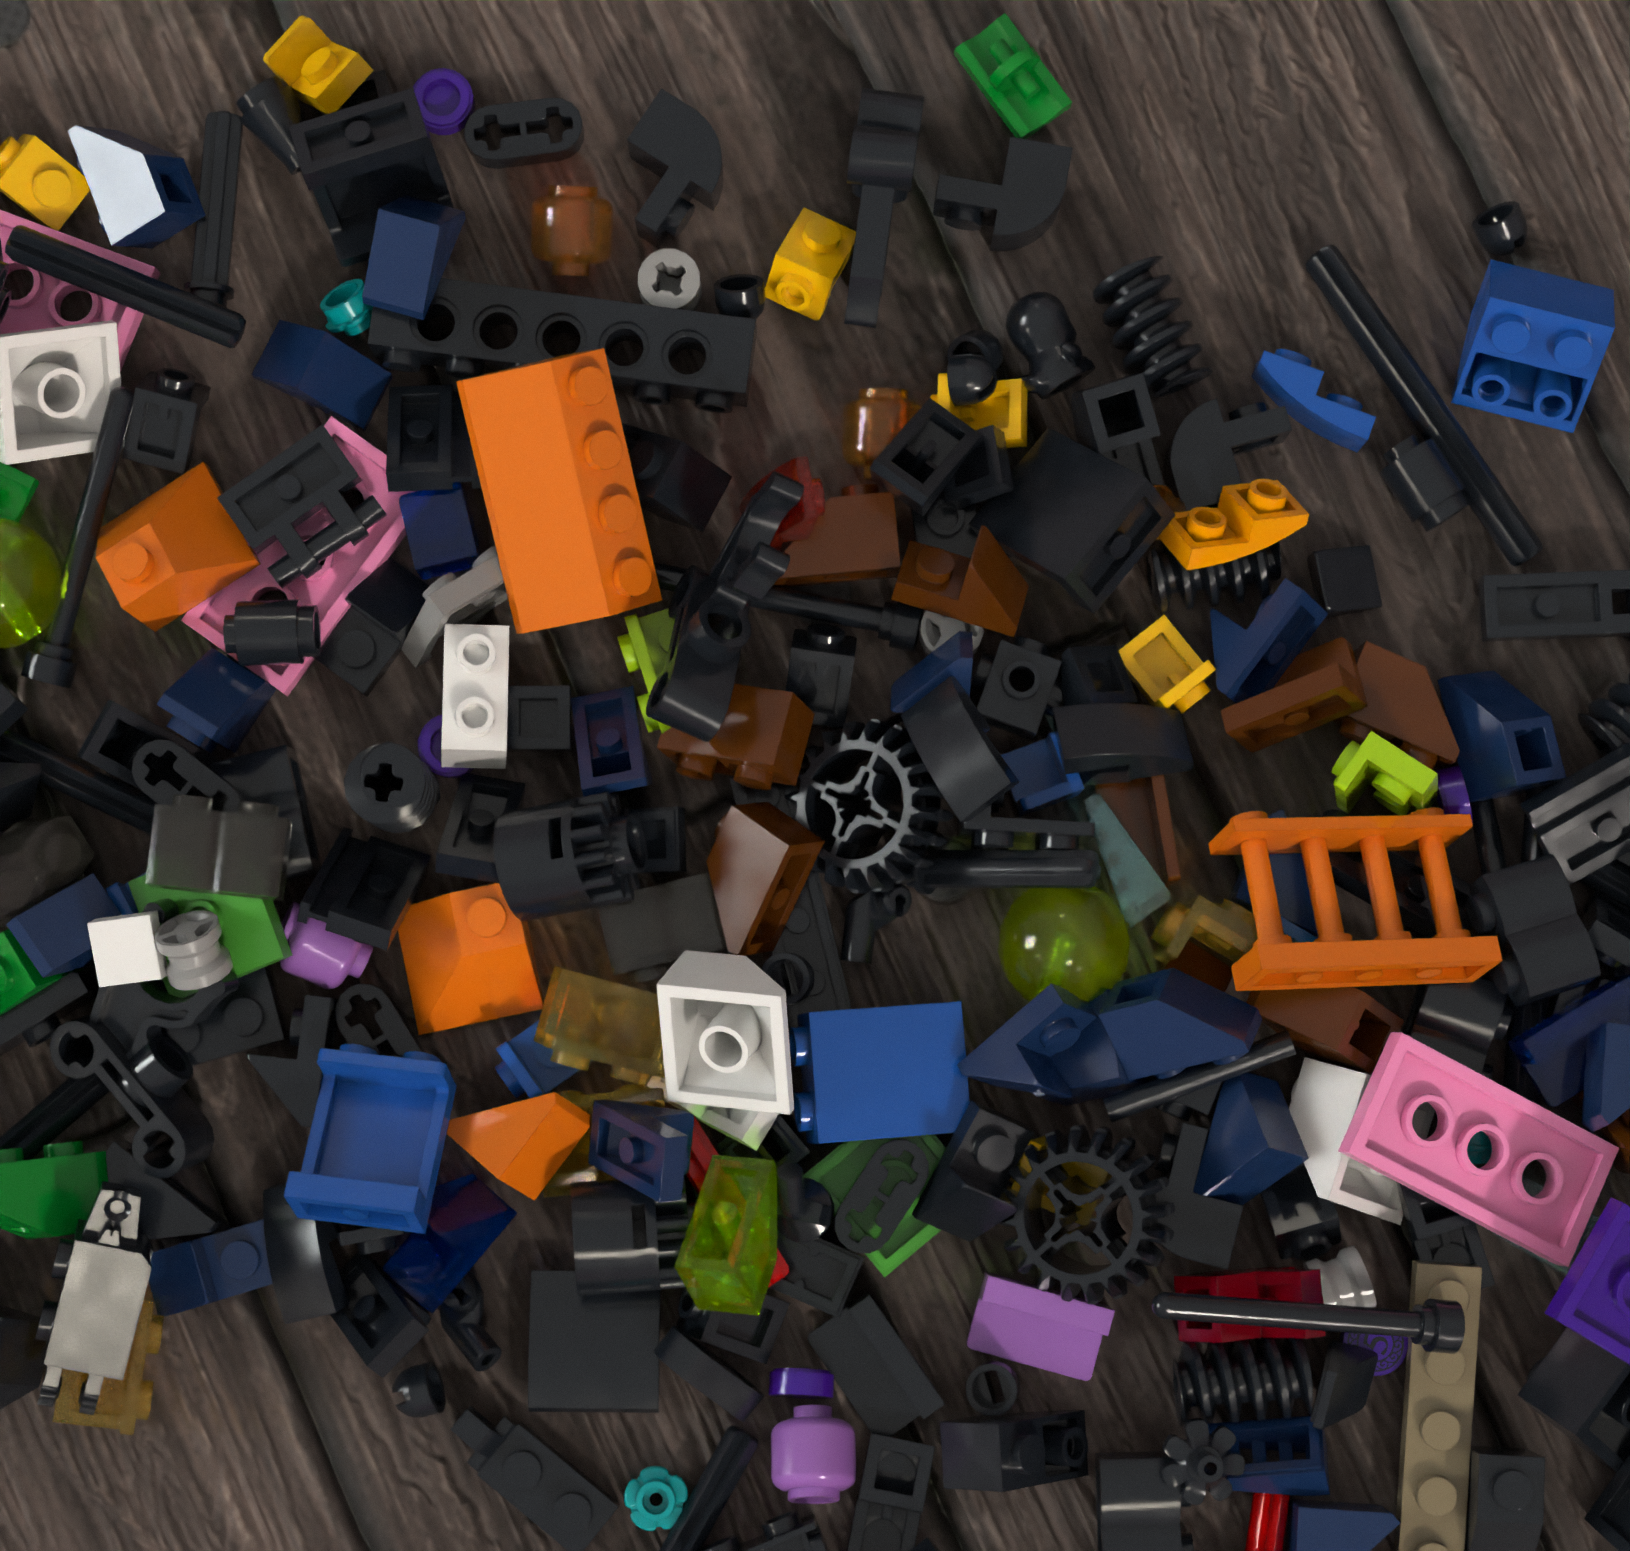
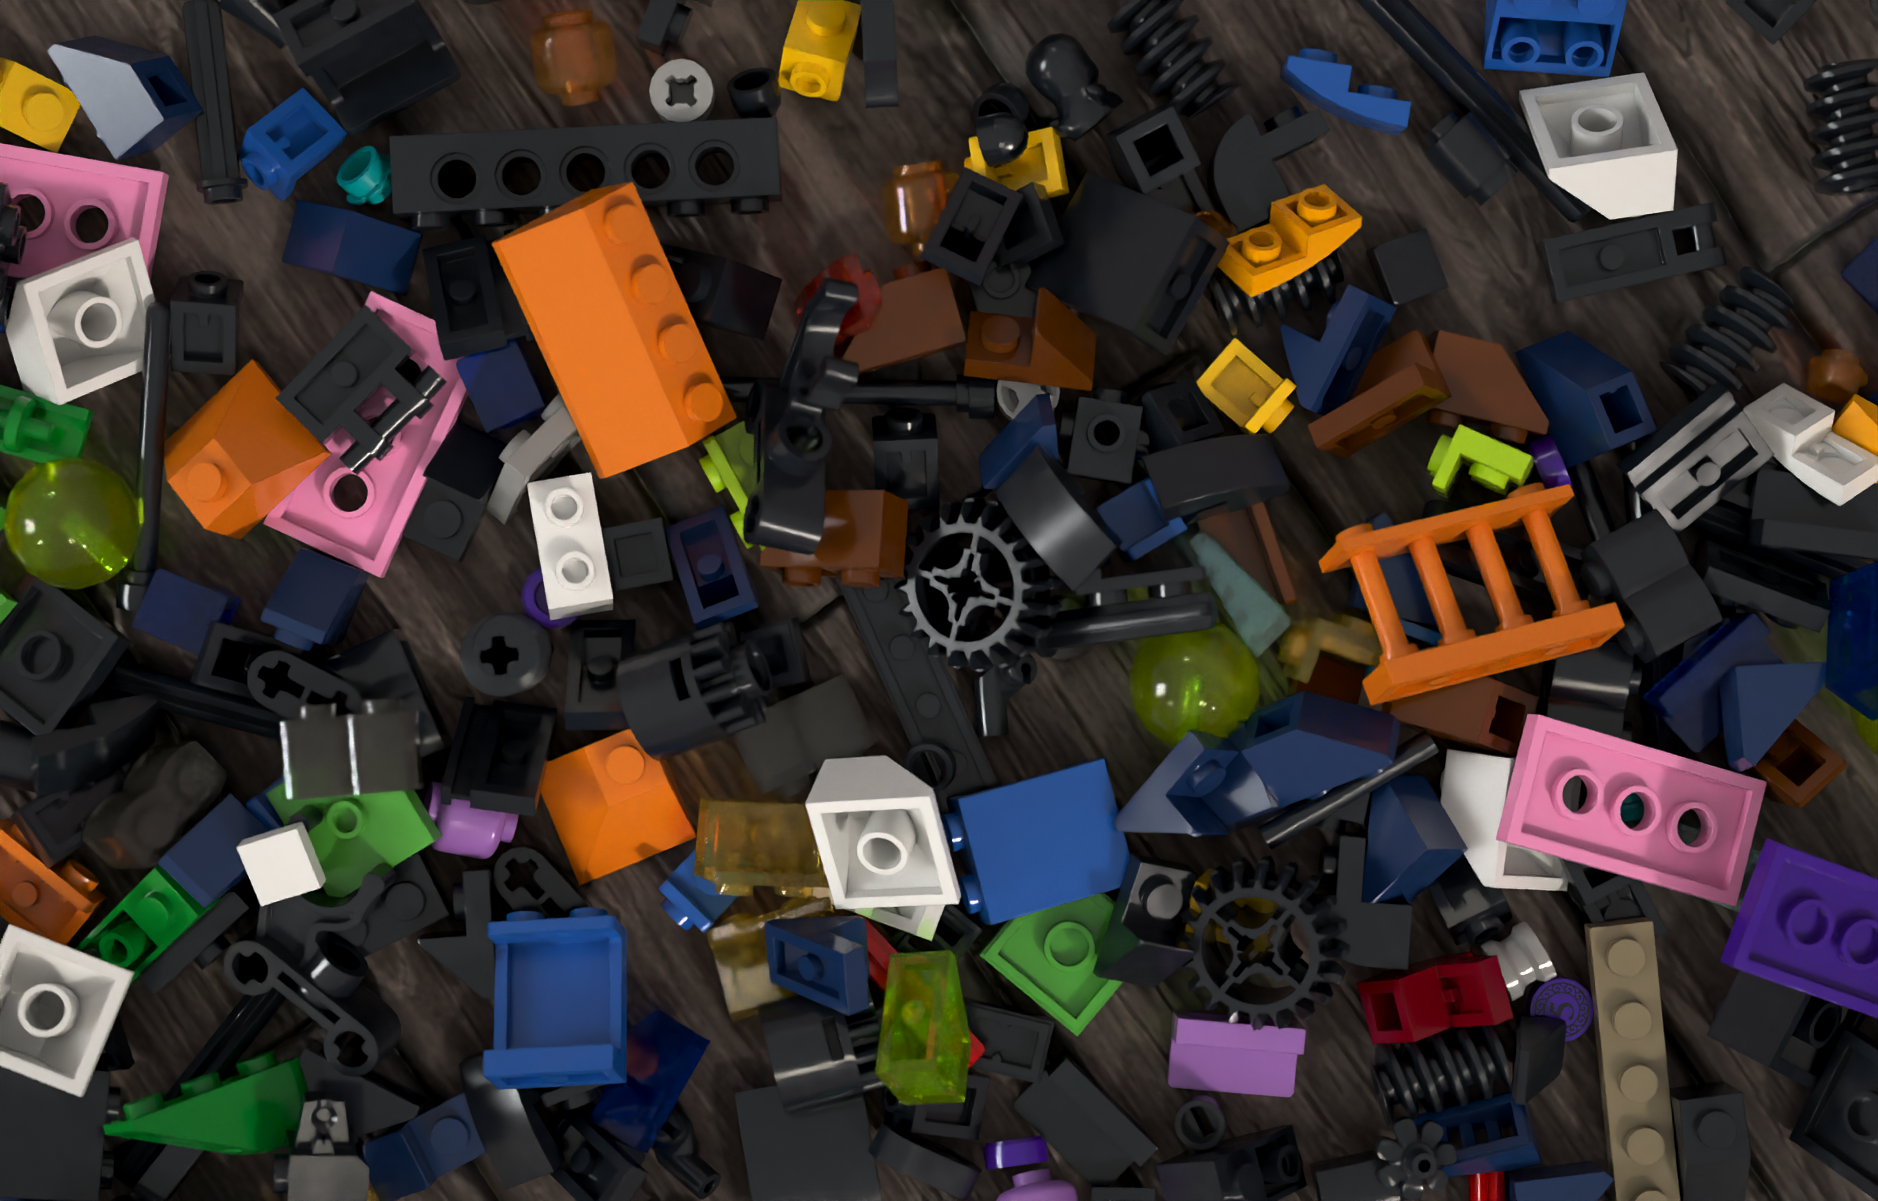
camera: 15 degrees left, 5 degrees up
(81, 687) = (182, 609): none -> clear blue panel
(125, 286) = (138, 199): black axle -> none
(193, 950) = (346, 853): light grey wheel -> none
(273, 632) = (358, 521): black brick -> none
(281, 263) = (289, 143): none -> blue bracket
(410, 254) = (418, 115): dark blue slope -> none
(523, 1139) = (703, 974): orange slope -> none
(759, 873) = (883, 670): reddish brown slope -> none
(802, 1205) = (986, 984): black plate -> none
(894, 1205) = (1074, 966): black beam -> none
(1434, 1325) = (1616, 987): black piece -> none
(1560, 494) = (1605, 143): none -> white slope

